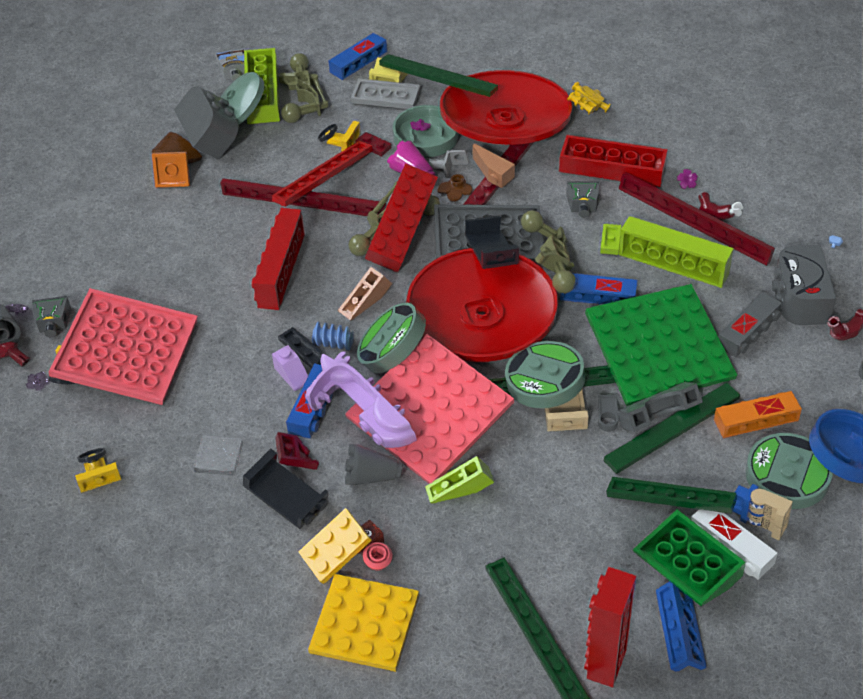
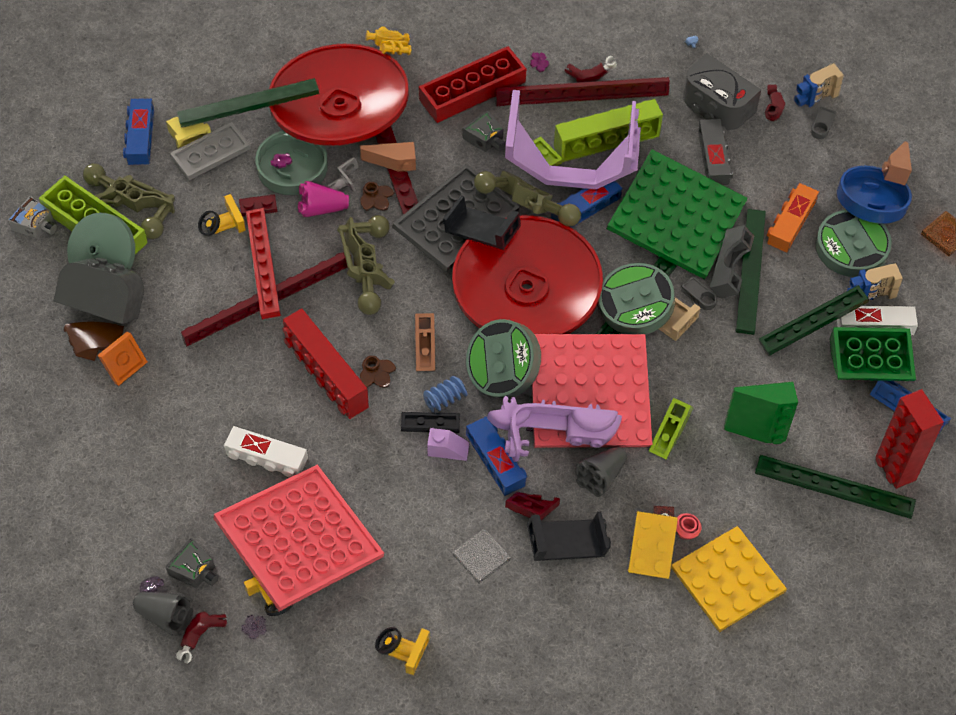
camera: 50 degrees left, 10 degrees up
(178, 284) = (265, 451): none -> white brick
(310, 291) = (378, 374): none -> reddish brown plate
(401, 218) = (384, 254): red brick -> none
(529, 517) = (762, 411): none -> green slope
(586, 204) = (525, 154): none -> lavender panel

